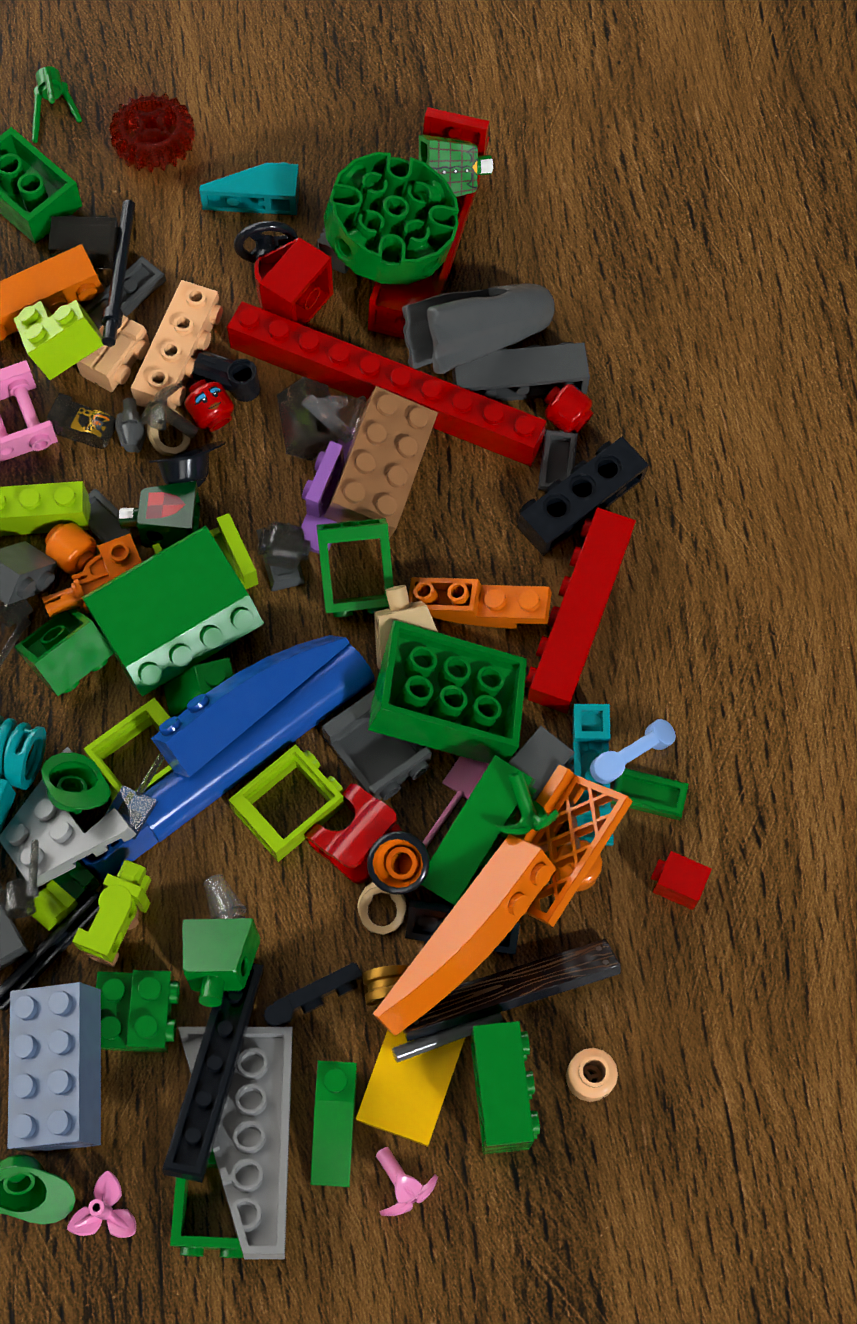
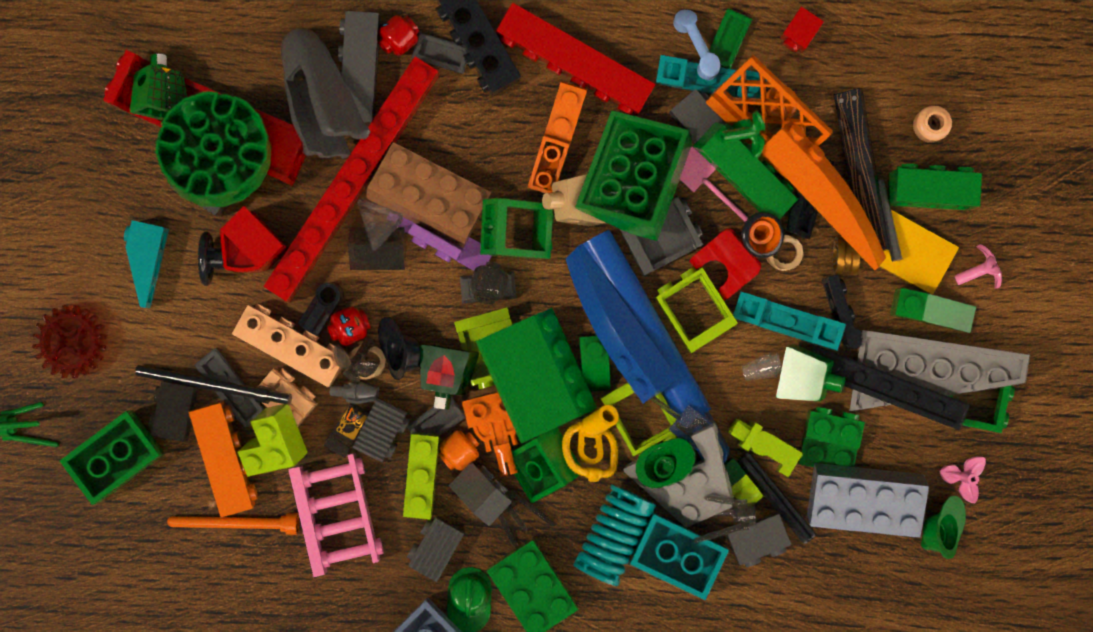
camera: 80 degrees left, 20 degrees up
(86, 458) = (381, 430): none -> dark grey brick
(118, 699) = (593, 427): none -> yellow piece
(290, 924) = (789, 321): none -> teal slope

